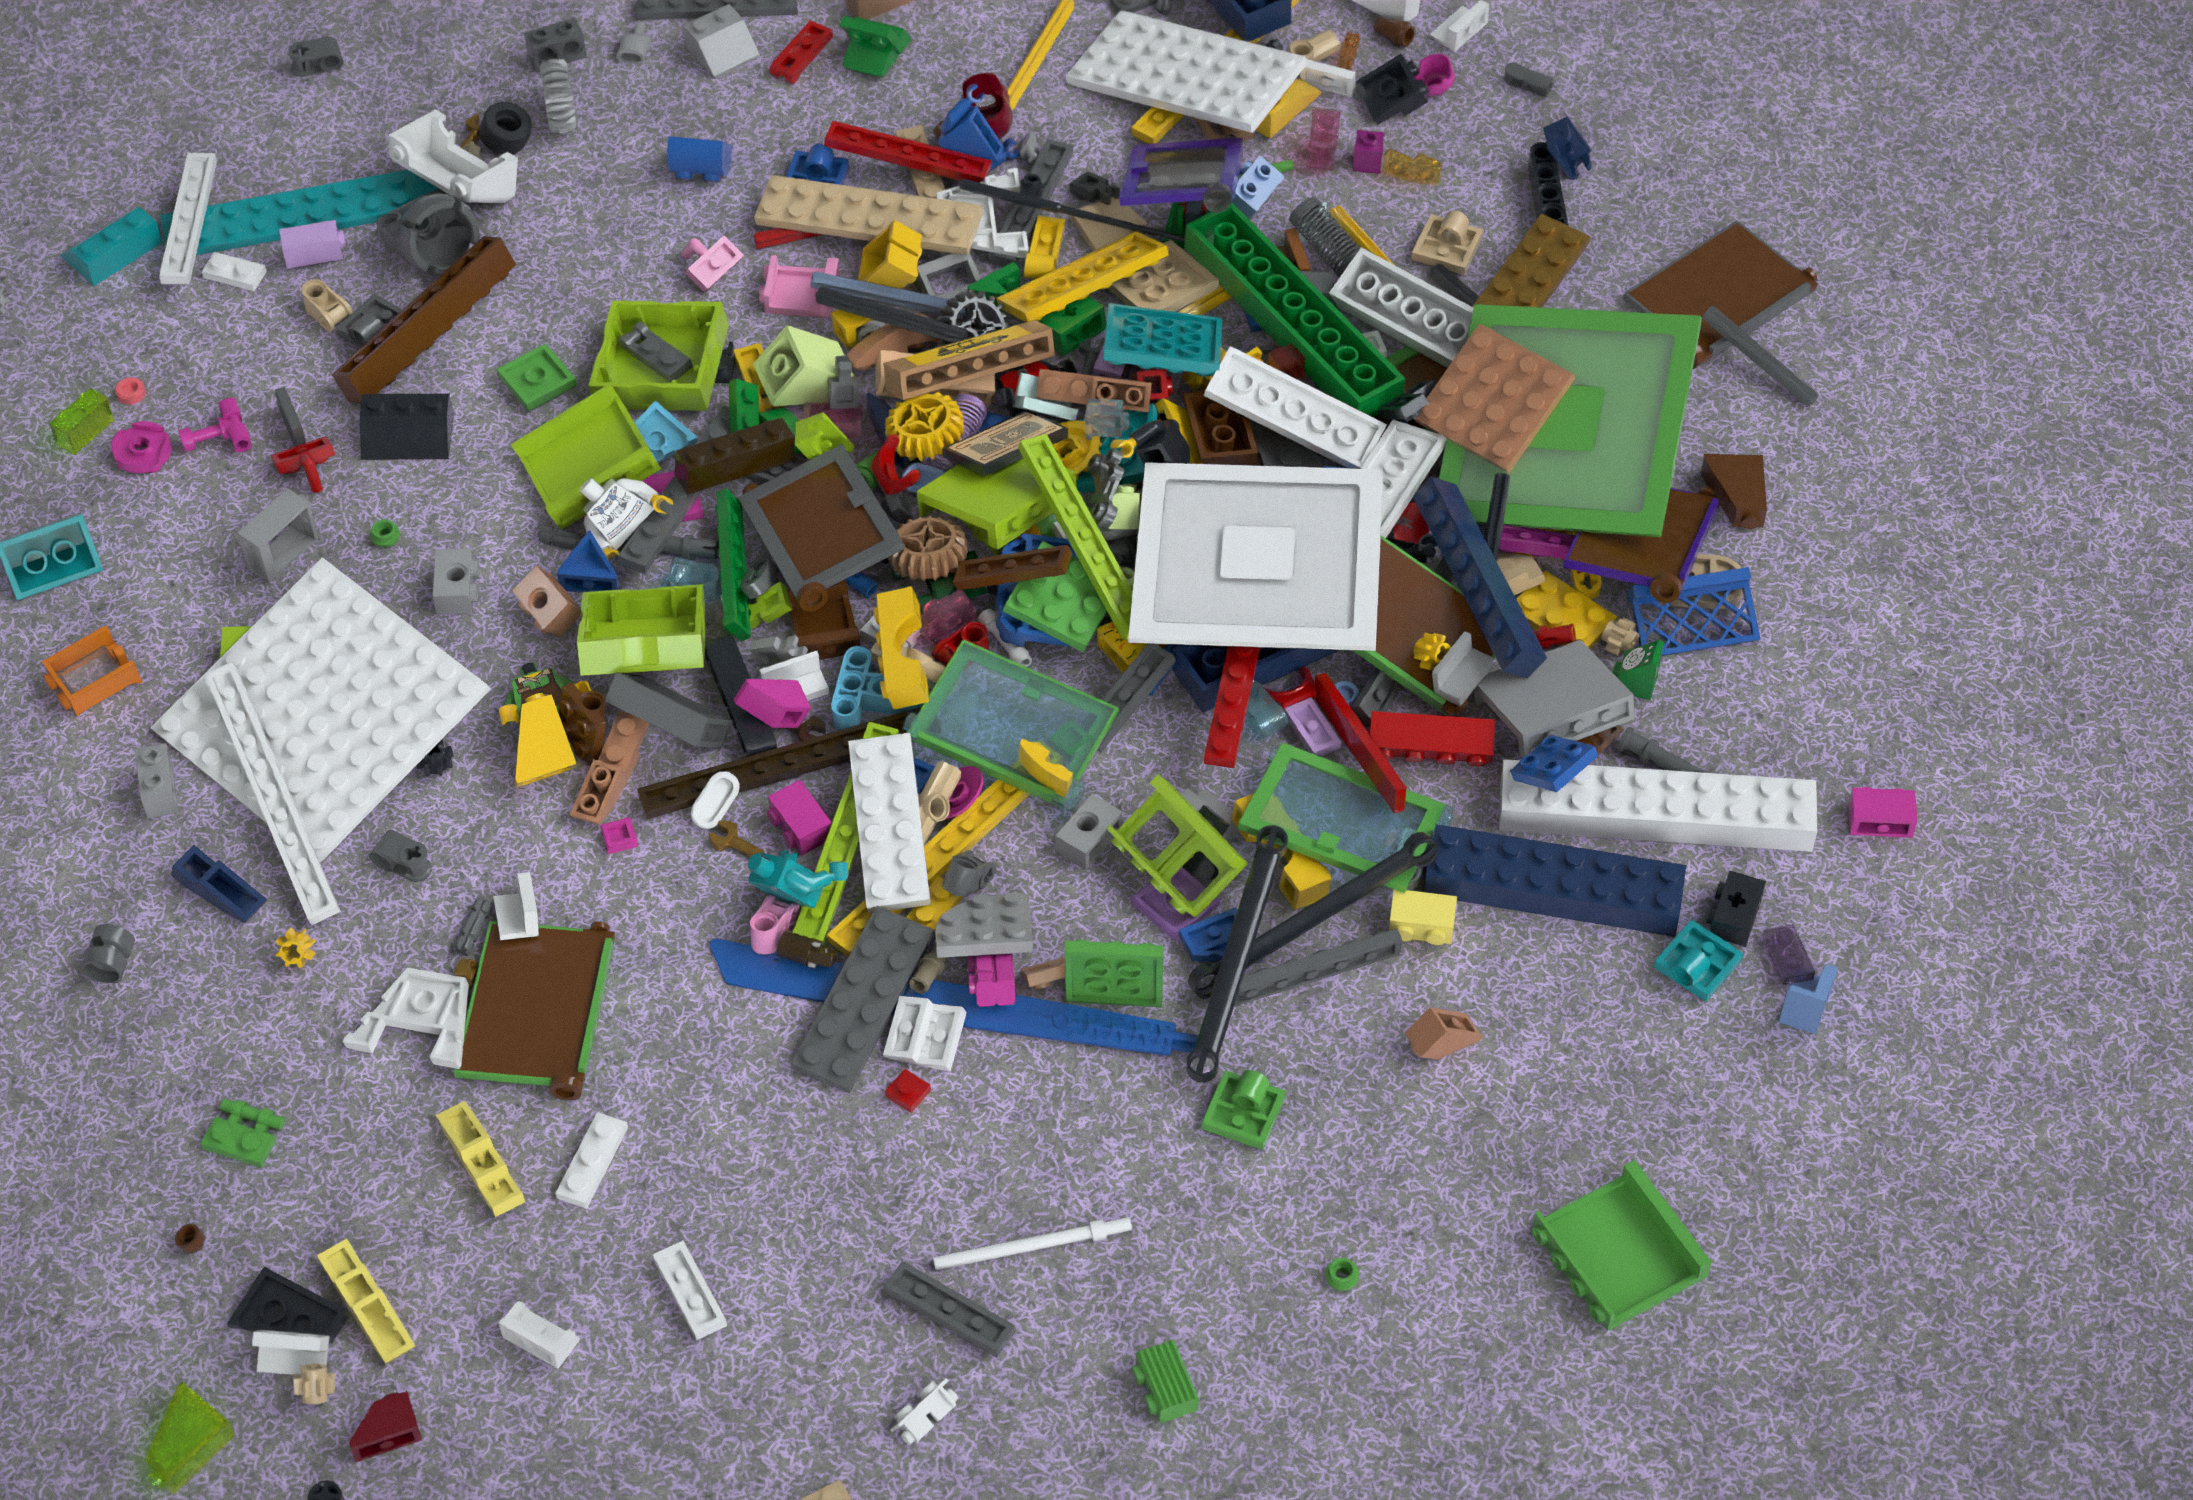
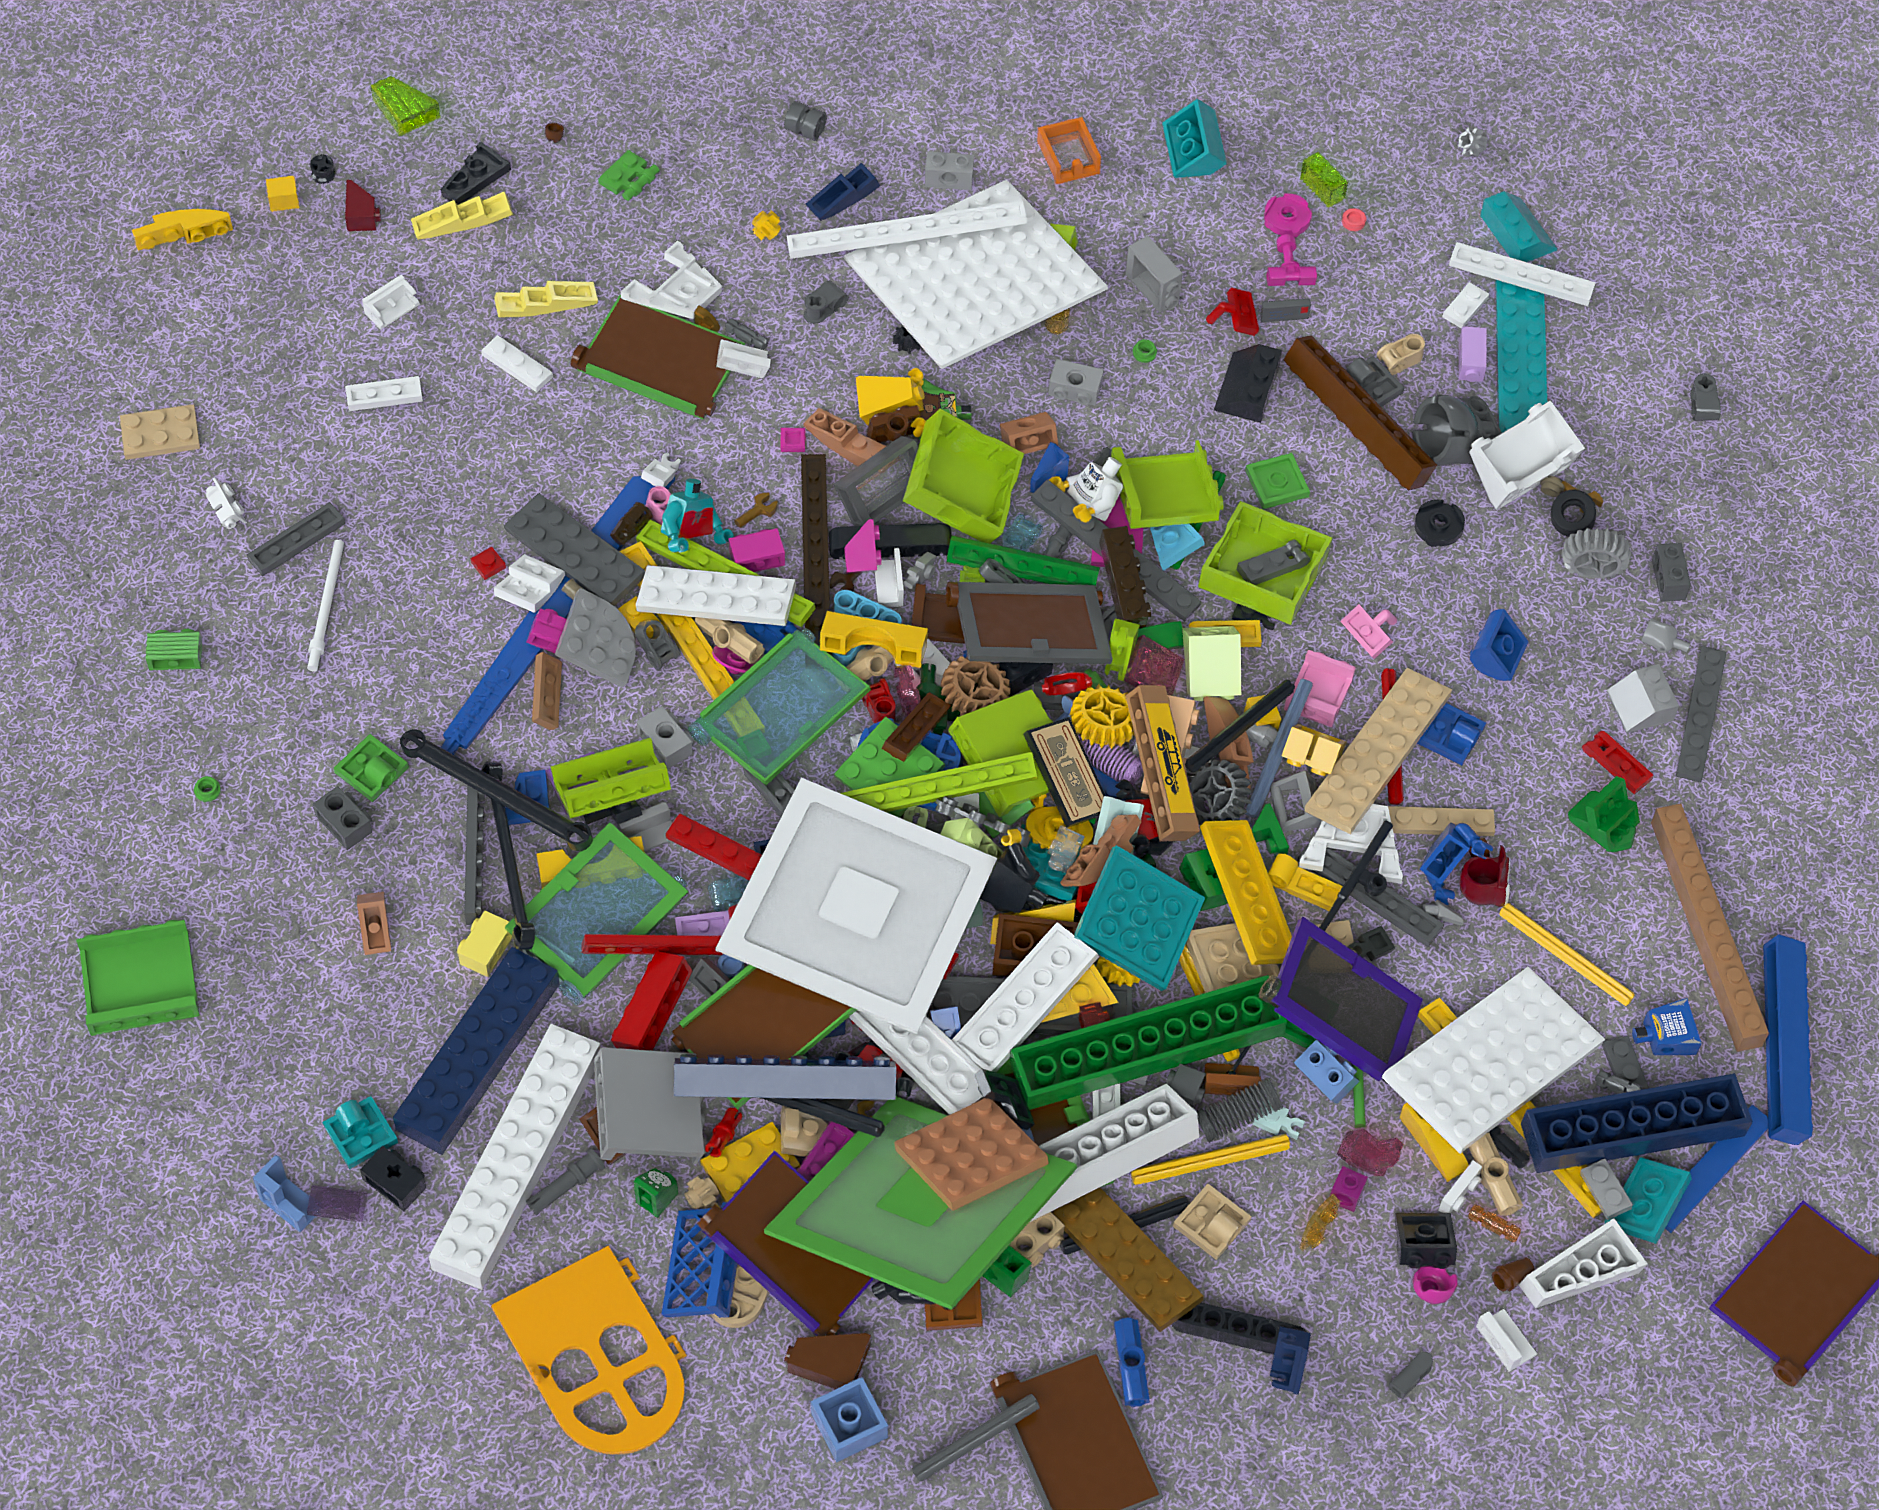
camera: 105 degrees right, 5 degrees up
(289, 1351) = (441, 166): white panel -> none
(314, 1383) = (409, 175): tan gear -> none
(552, 247) = (1439, 535): none -> black plate
(714, 800) = (794, 500): white tile -> none
(719, 946) = (661, 472): none -> white plate
(743, 405) = (1180, 608): green hinge -> none
(844, 389) = (1179, 677): dark grey plate -> none
(906, 152) = (1446, 799): red plate -> none
(1036, 761) = (728, 704): yellow slope -> none
(1114, 973) = (508, 699): bright green plate -> none
(1330, 1114) = (338, 820): none -> dark grey brick
(1431, 650) = (721, 1017): yellow gear -> none
(1460, 671) = (697, 1035): light grey panel -> none
(1554, 763) = (563, 1062): blue plate -> none
(1621, 268) = (1130, 1347): none -> blue piece
(1796, 451) = (849, 1419): none -> medium blue brick
(1805, 710) = (572, 1313): none -> light orange door
(1882, 812) = (438, 1332): dark pink brick -> none

